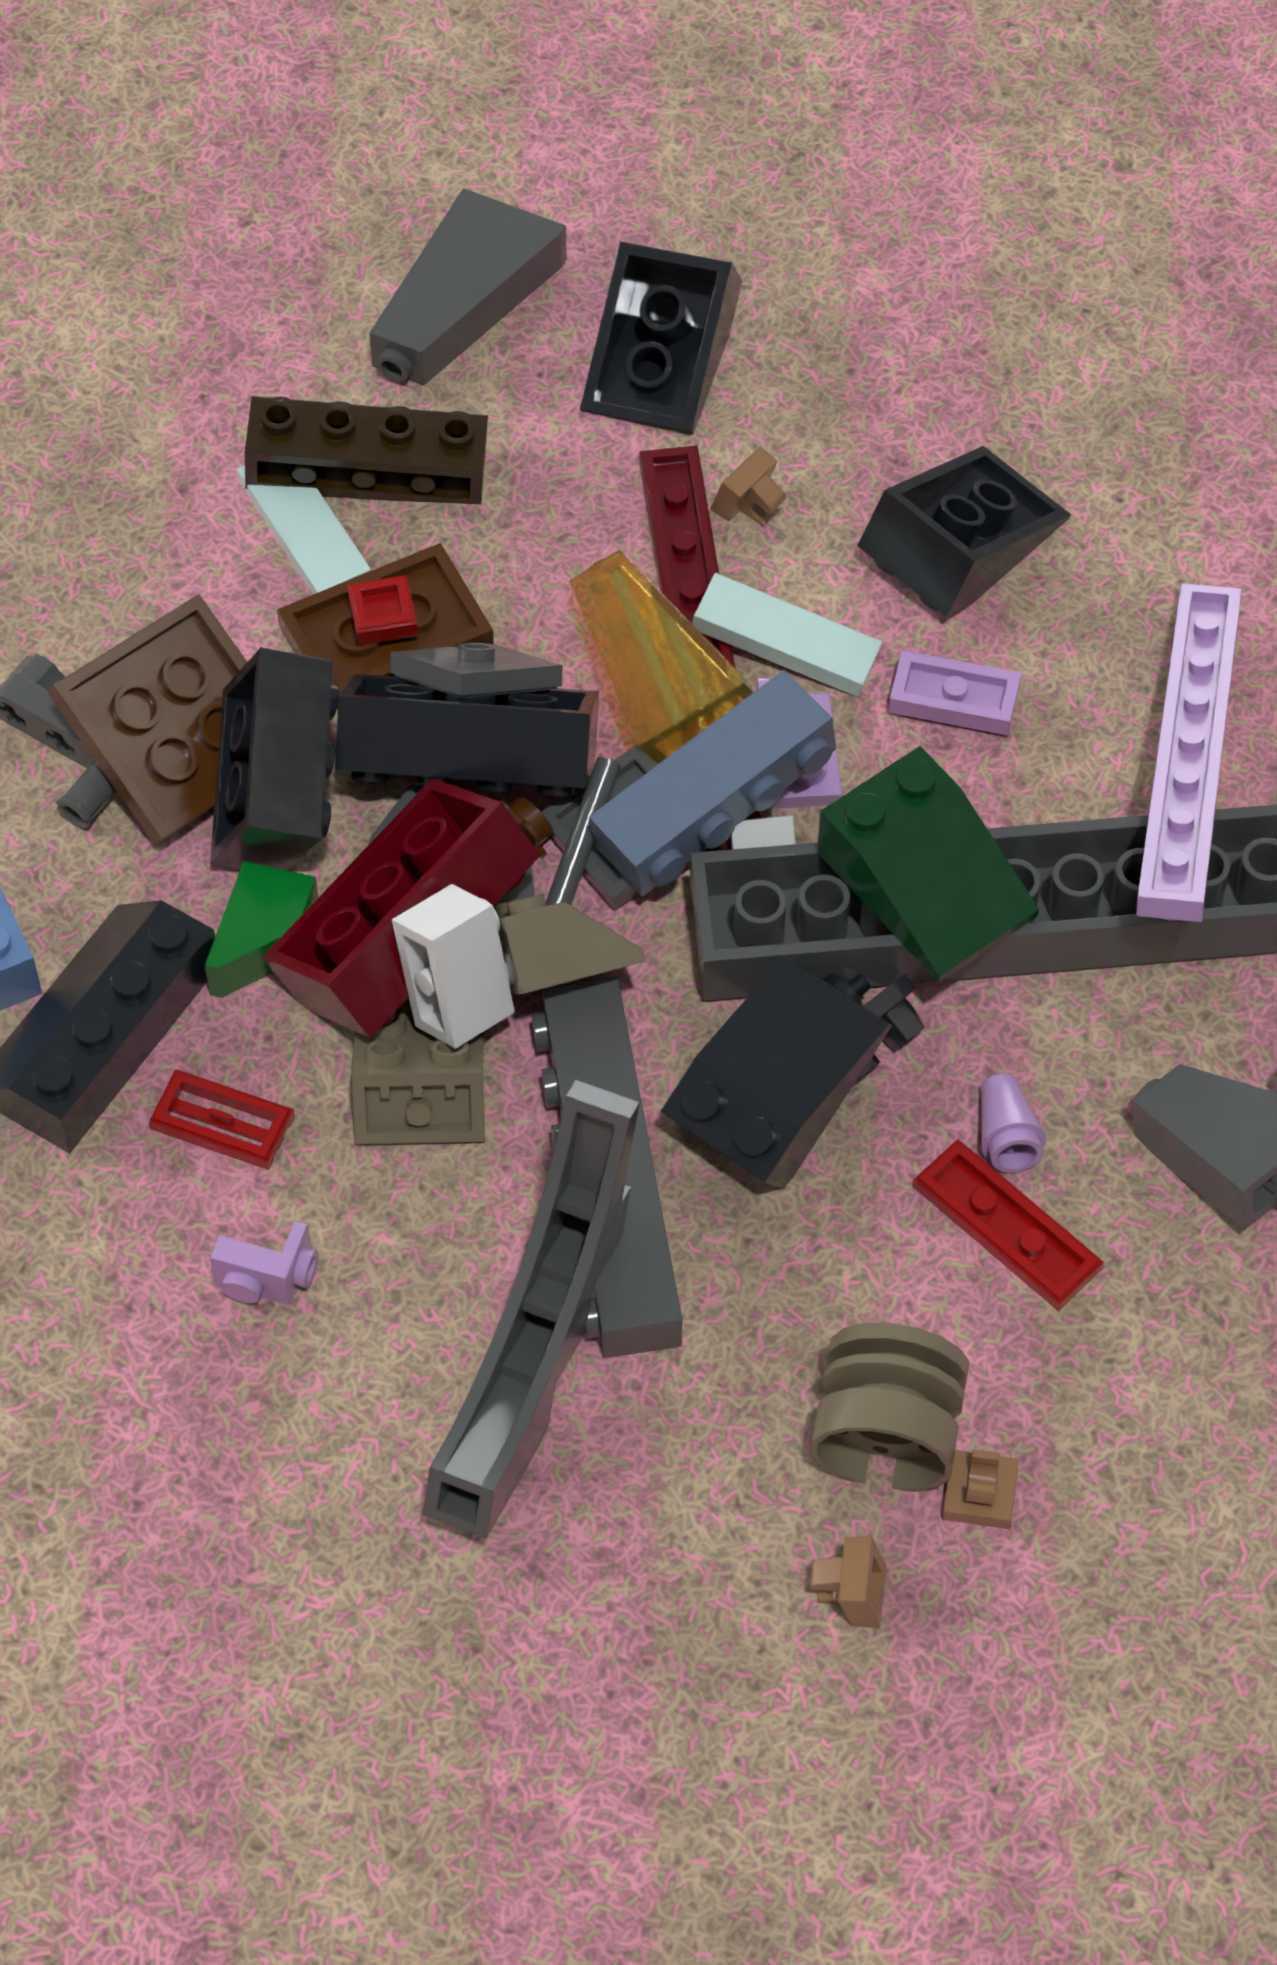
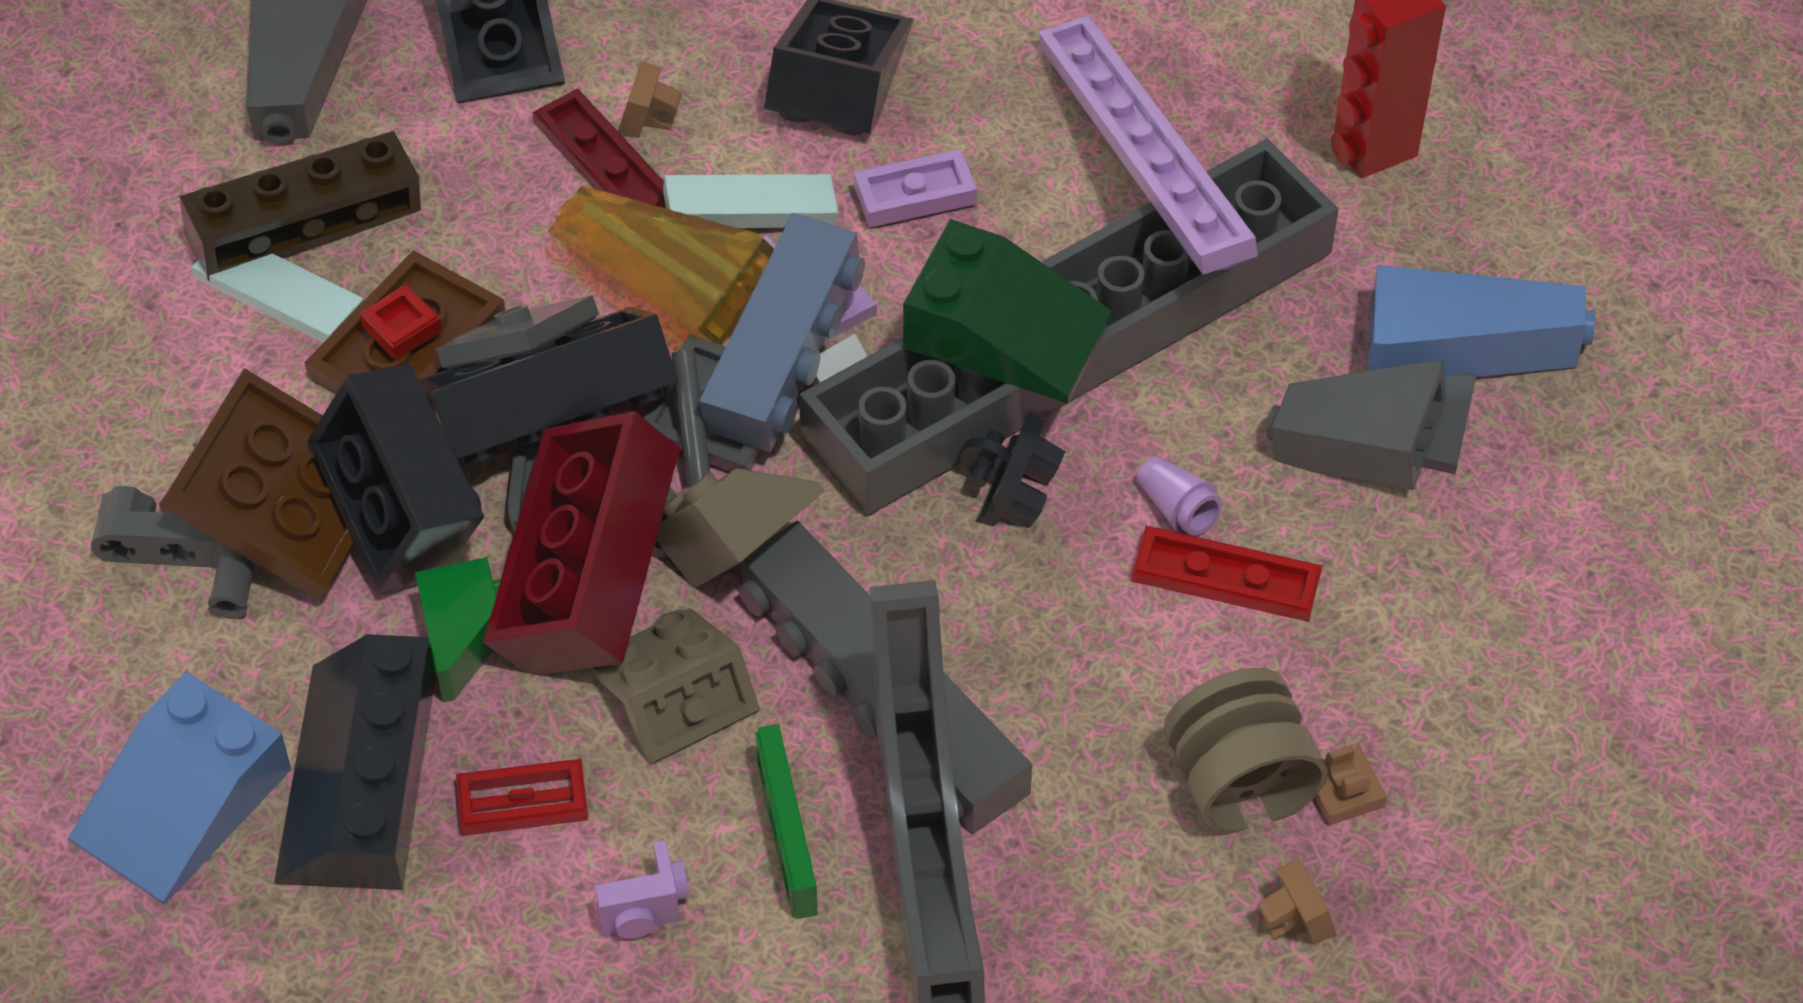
camera: 30 degrees left, 5 degrees down
(433, 1260) = (786, 822): none -> green tile
(454, 965) = (666, 566): white brick -> none
(777, 1072) = (982, 530): black slope -> none

